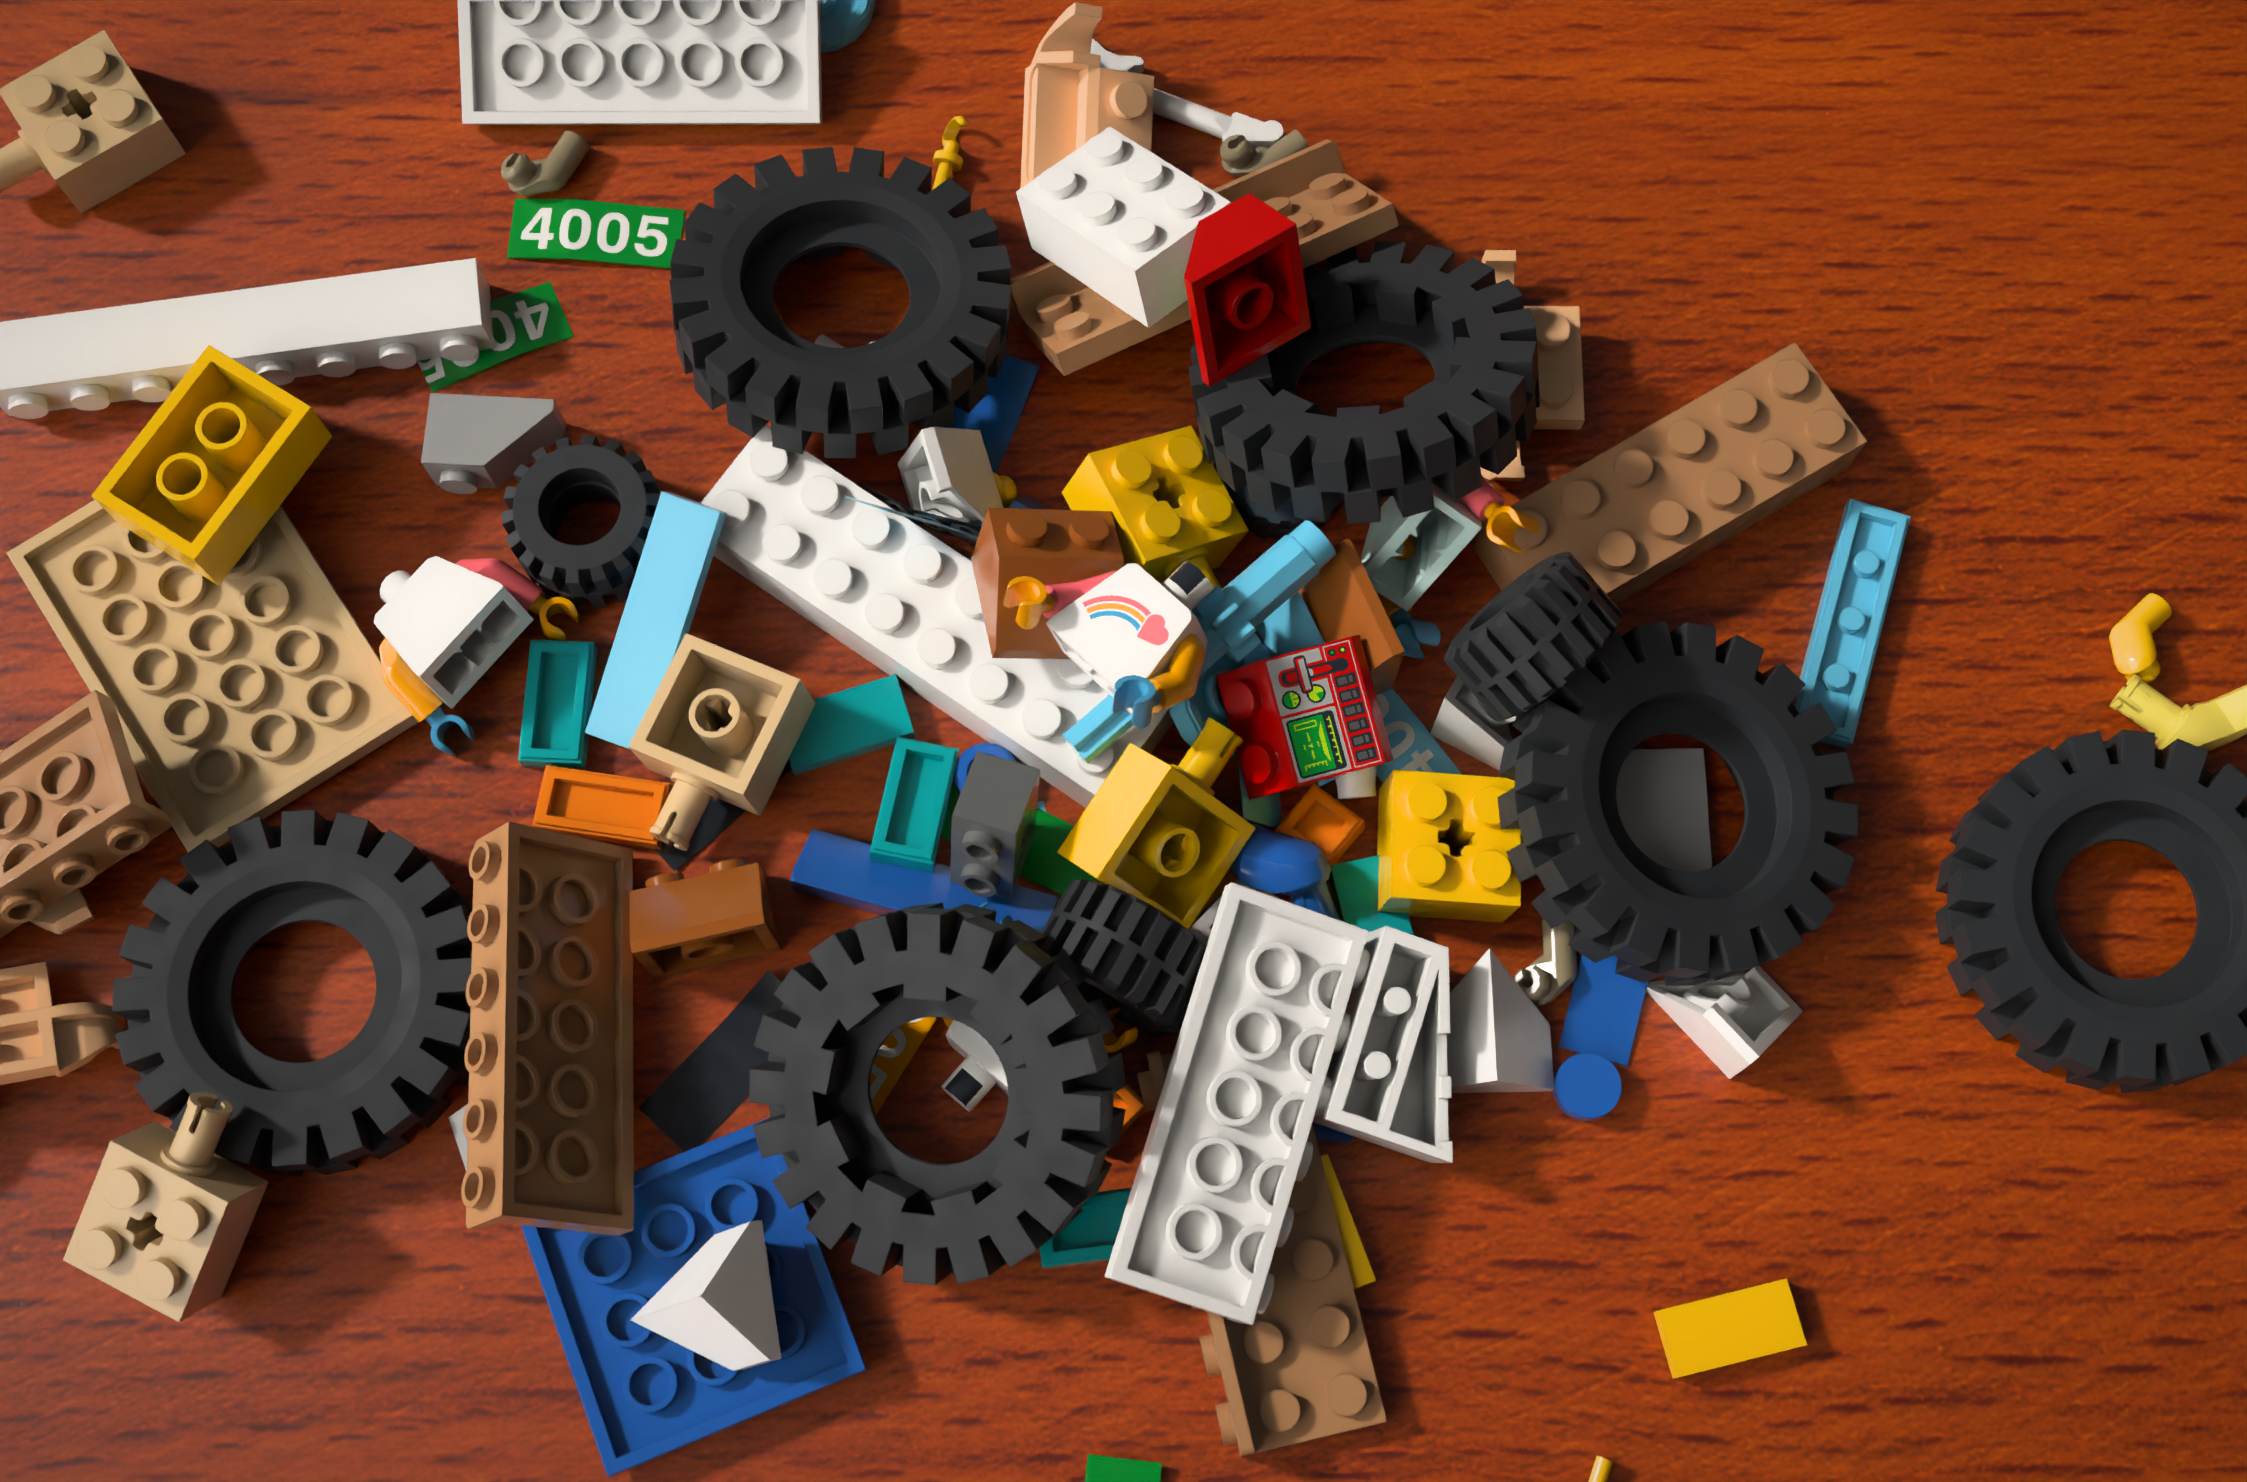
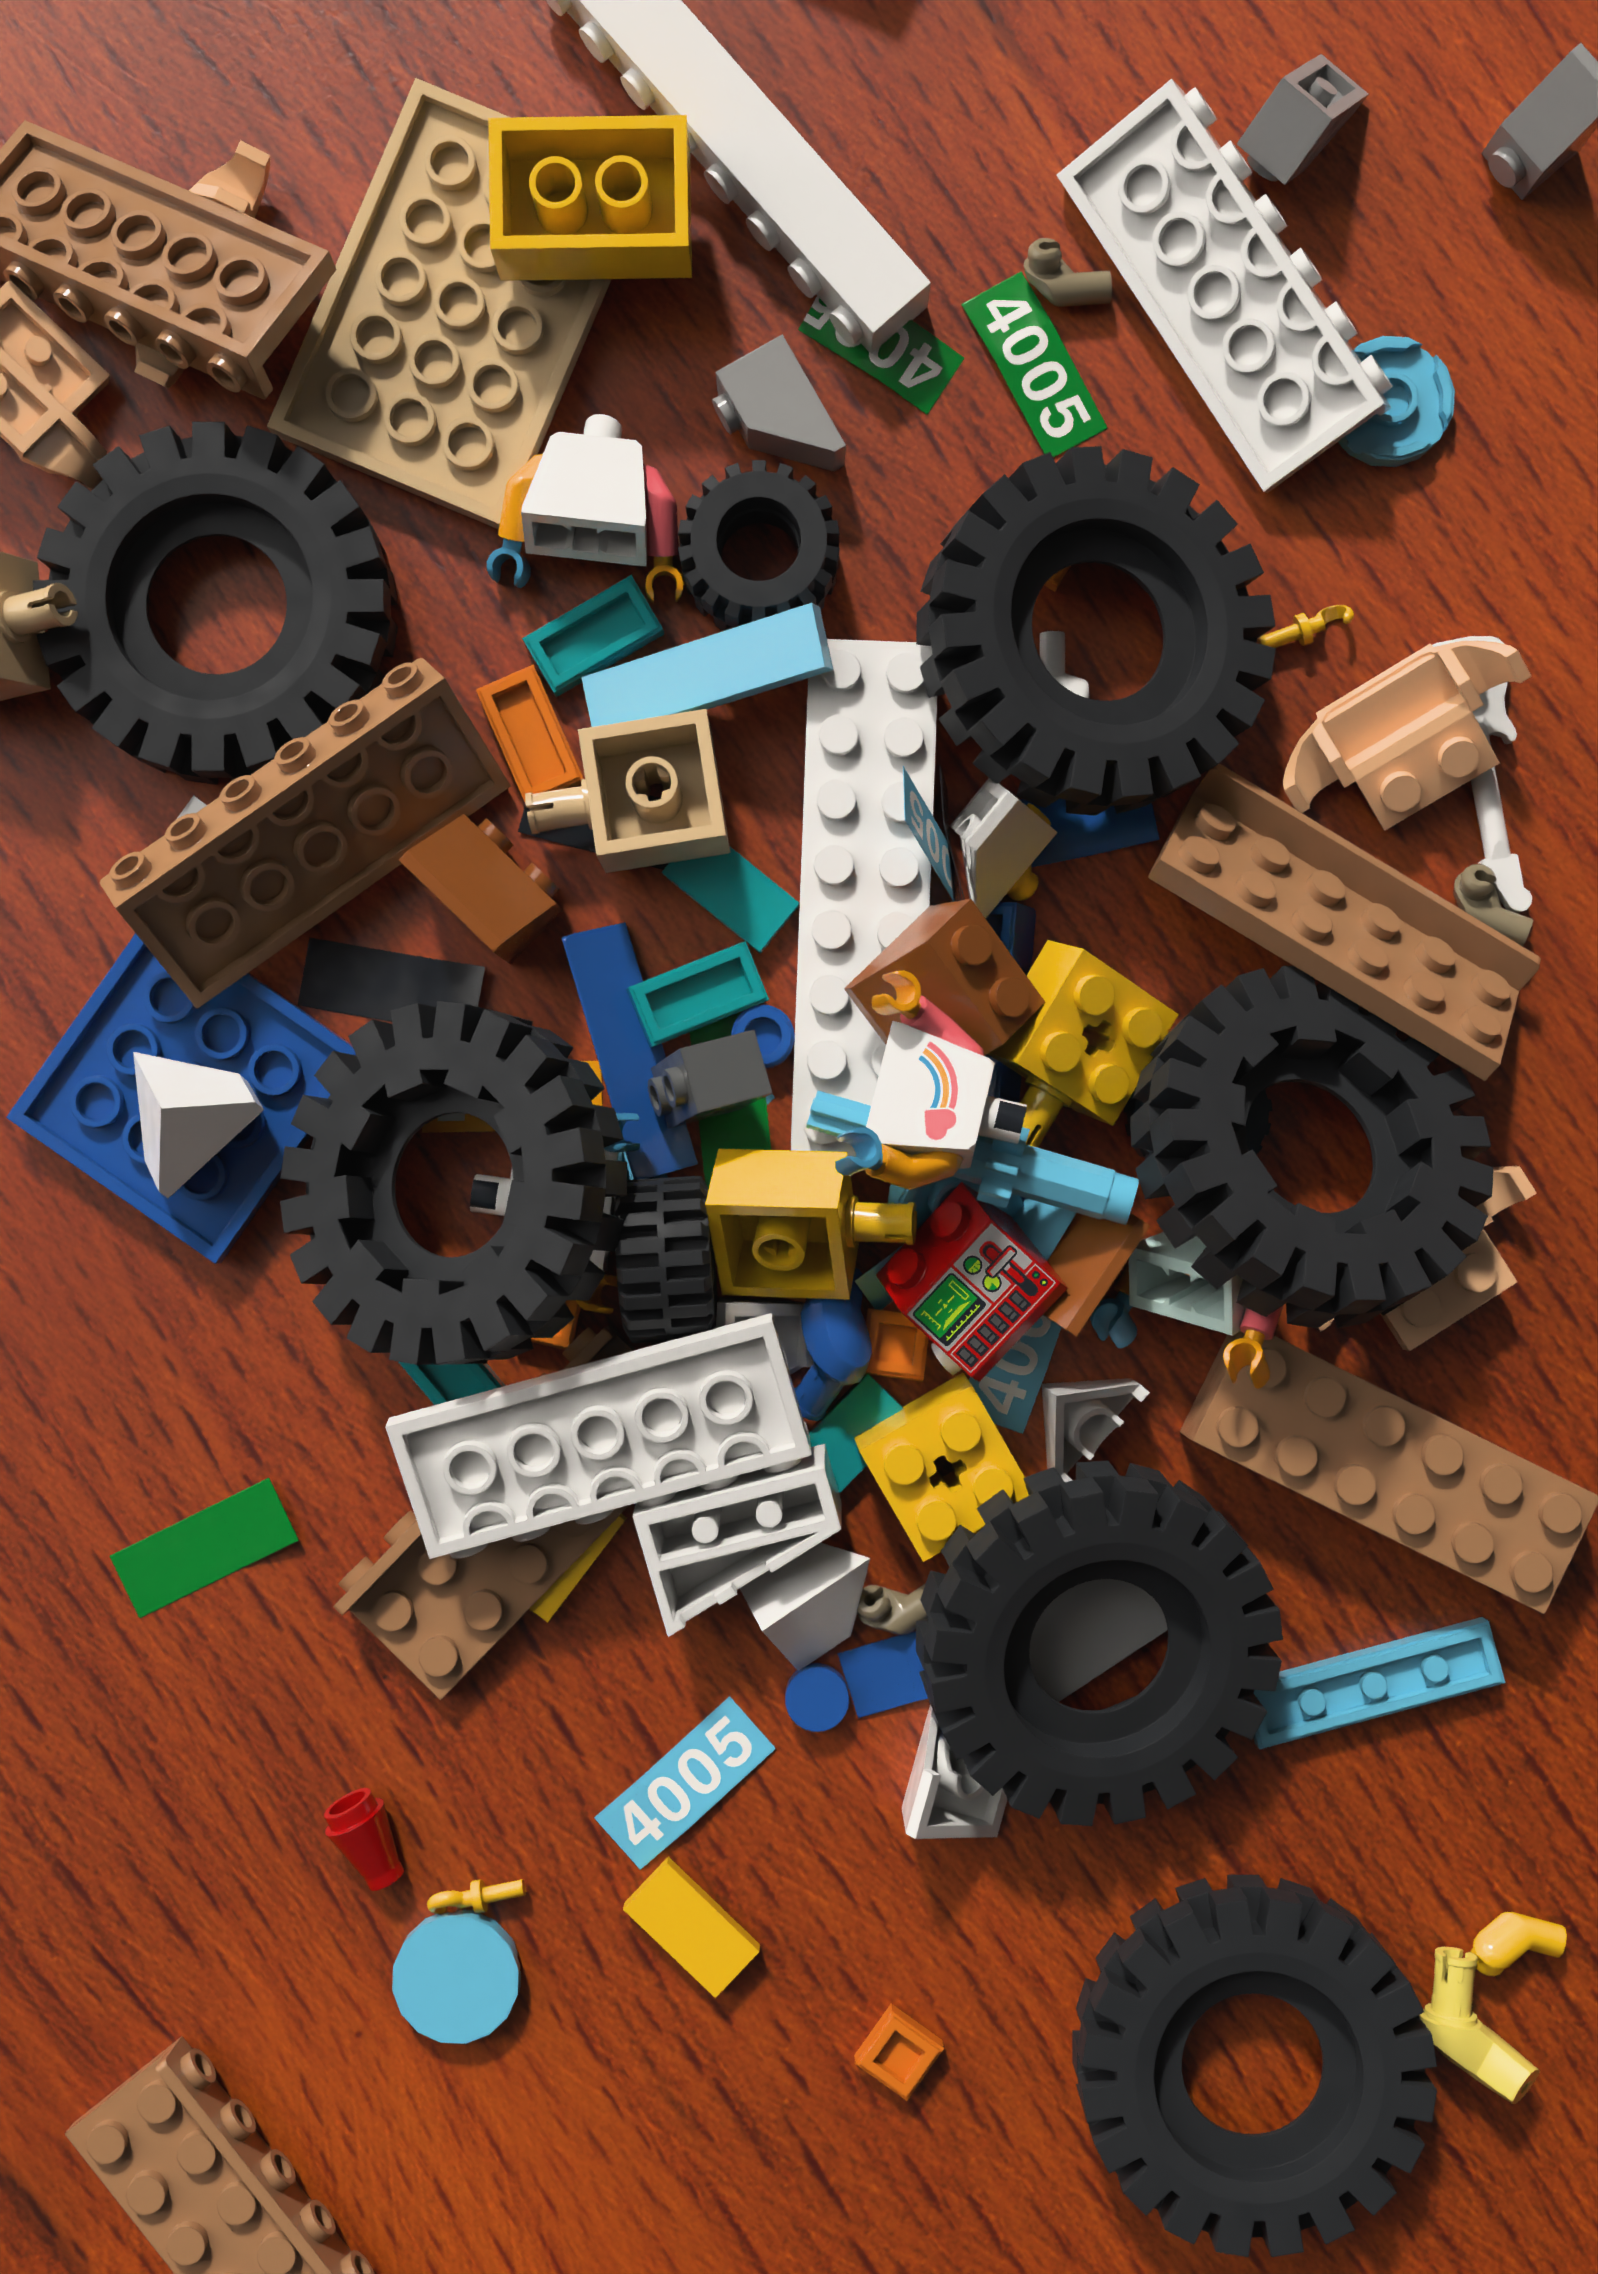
camera: 55 degrees right, 15 degrees up
(1119, 222) = (1324, 845): white brick -> none
(1244, 286) = (1320, 990): red slope -> none
(1533, 636) = (1157, 1442): black tyre -> none
(1596, 1256) = (685, 1783): none -> medium azure sticker
(1949, 1215) = (899, 2052): none -> orange tile

